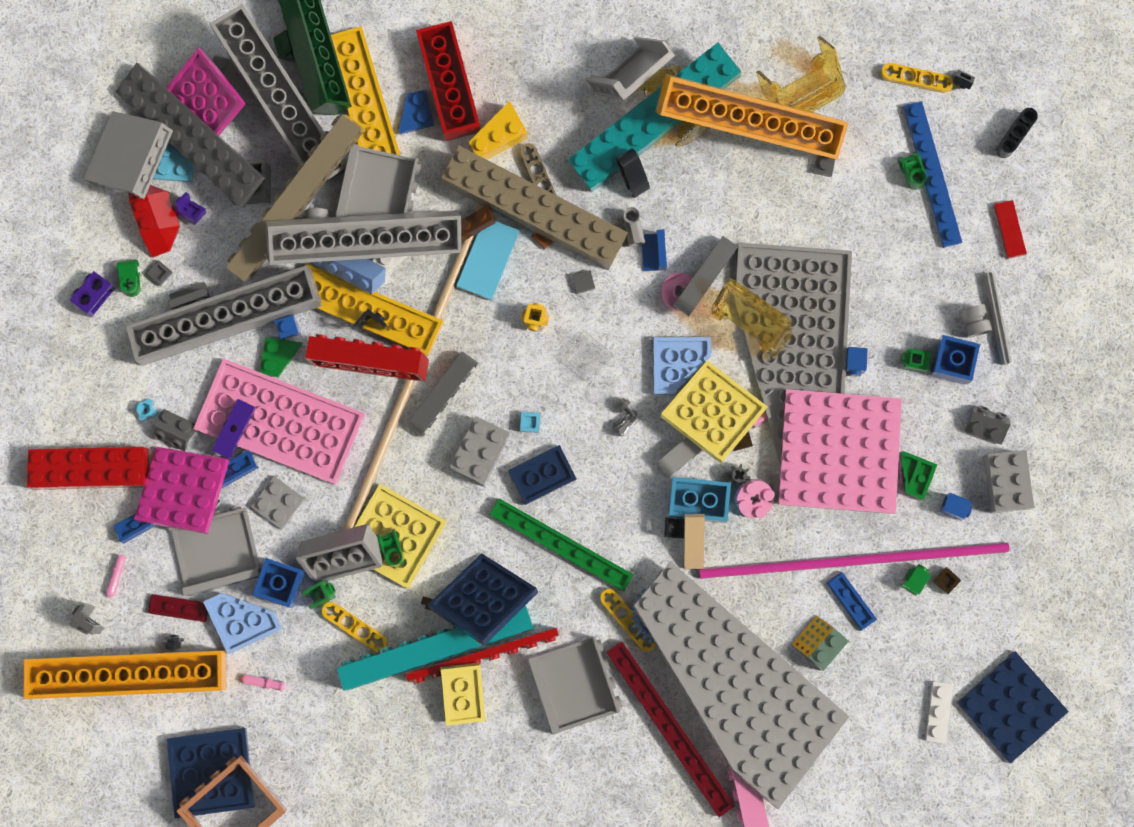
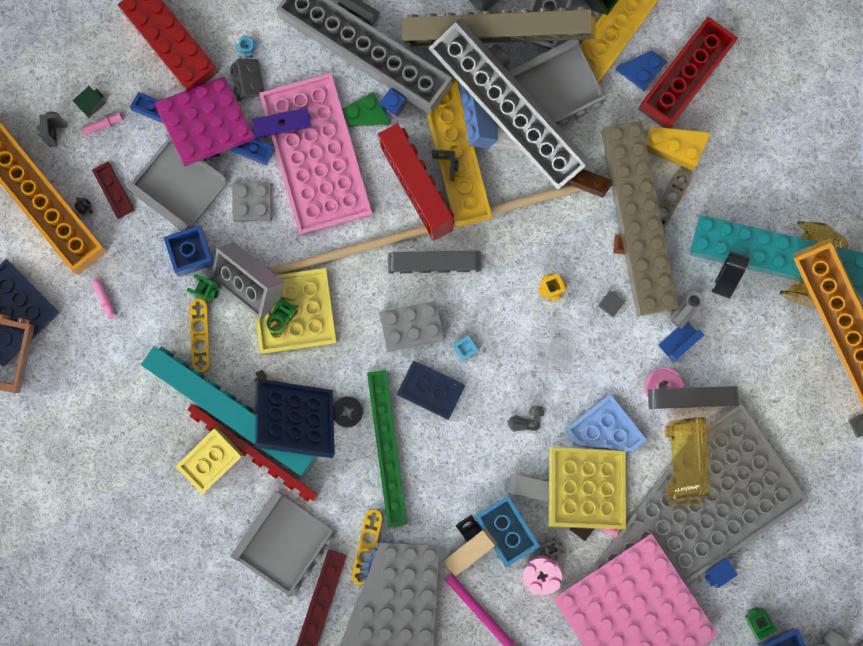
camera: 50 degrees right, 0 degrees up
(89, 572) = (89, 101): none -> dark green brick
(240, 621) = (137, 244): light blue plate -> none
(488, 260) = (569, 215): medium azure piece -> none
(515, 548) = (338, 409): none -> black gear
(634, 70) = (814, 211): light grey panel -> none

